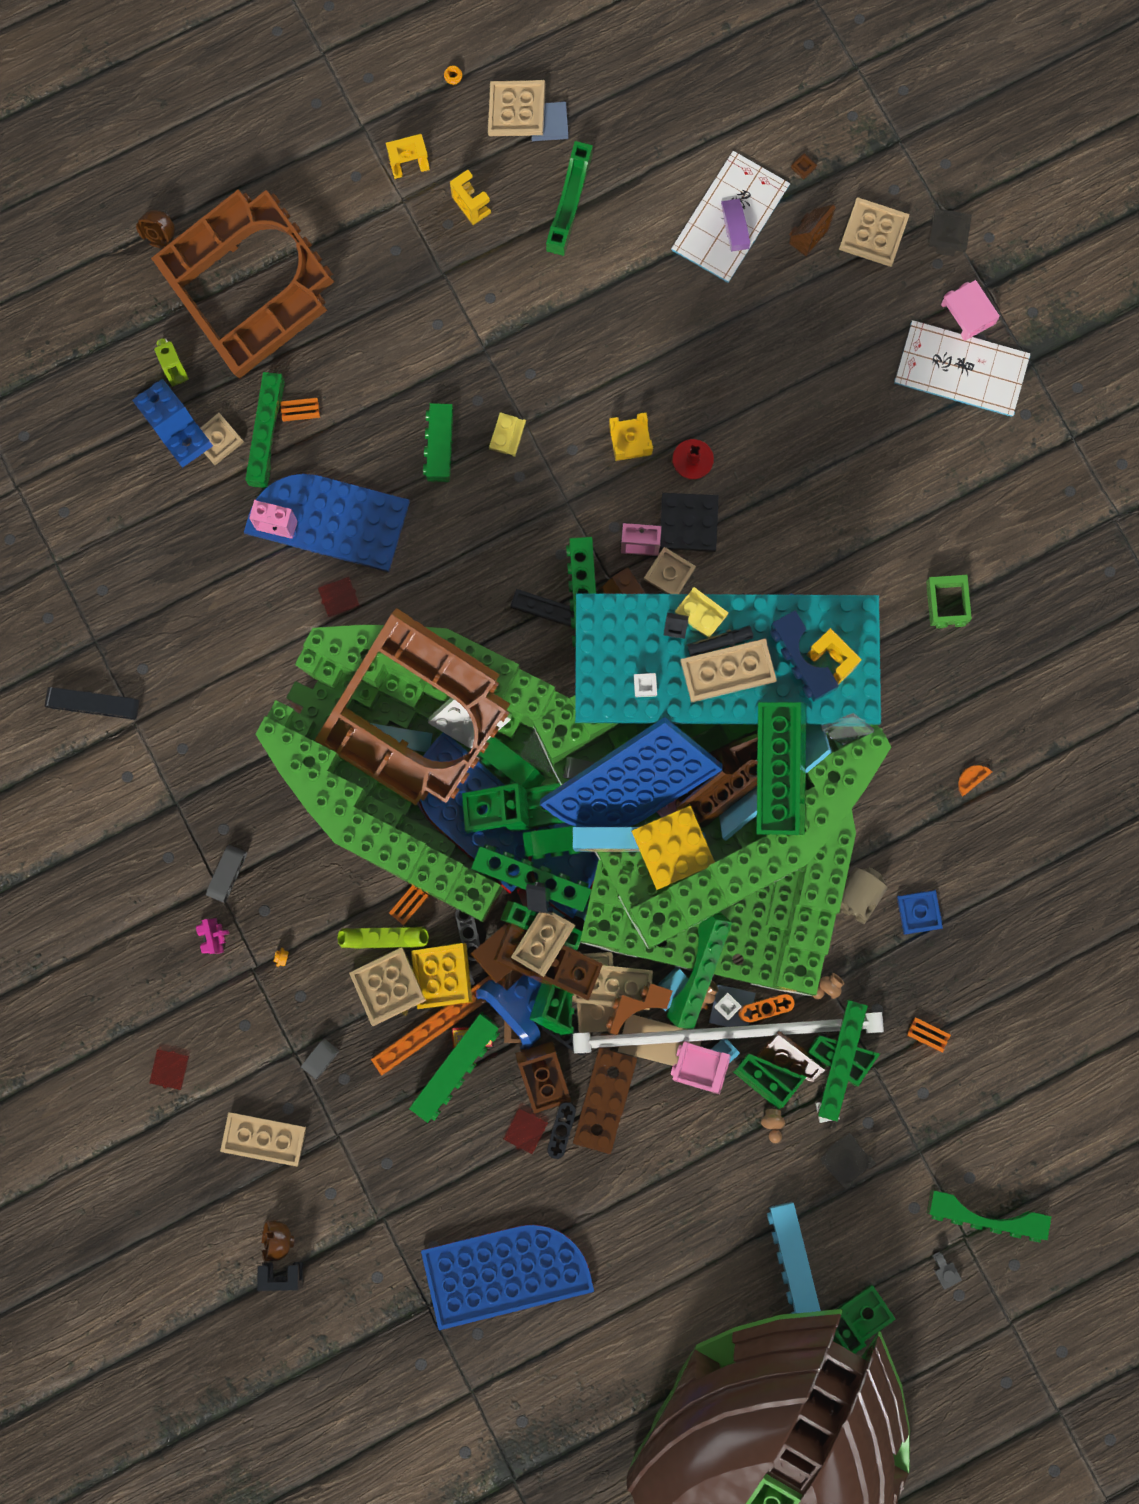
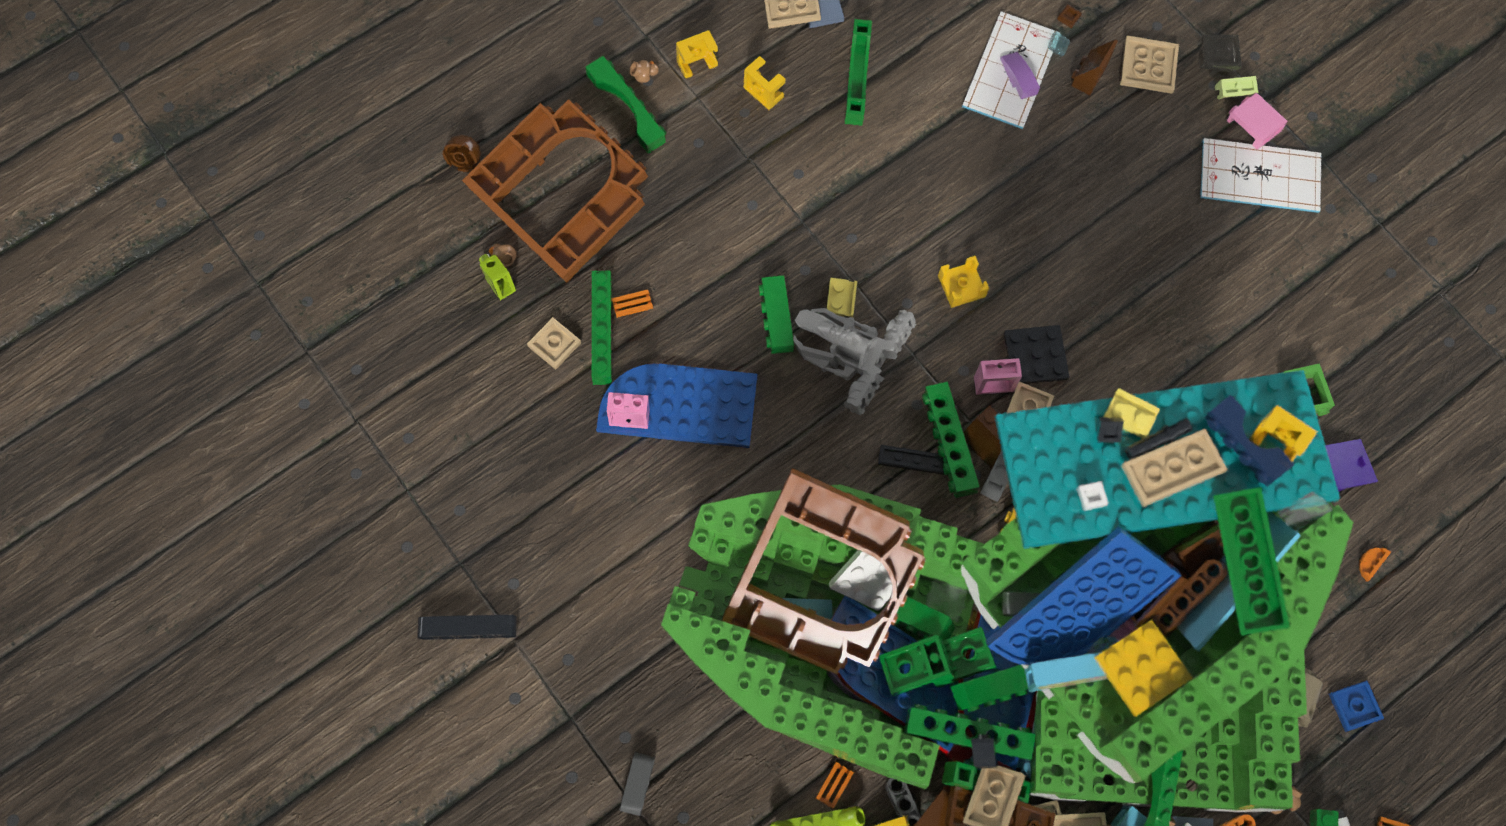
camera: 15 degrees left, 10 degrees down
(172, 423) = (508, 333): blue bracket -> none
(181, 340) = (505, 253): none -> medium nougat animal
(311, 167) = (605, 78): none -> green arch
(338, 596) = (703, 480): clear red piece -> none
(350, 165) = (642, 70): none -> medium nougat animal
(504, 490) = (854, 349): none -> light grey piece
(647, 818) = (1102, 644): none -> clear light blue tile
(693, 459) = (1027, 294): red piece -> none
(784, 196) = (1058, 44): none -> clear light blue tile
(958, 270) = (1237, 87): none -> yellowish green hinge
(966, 680) = (1350, 464): none -> dark purple door

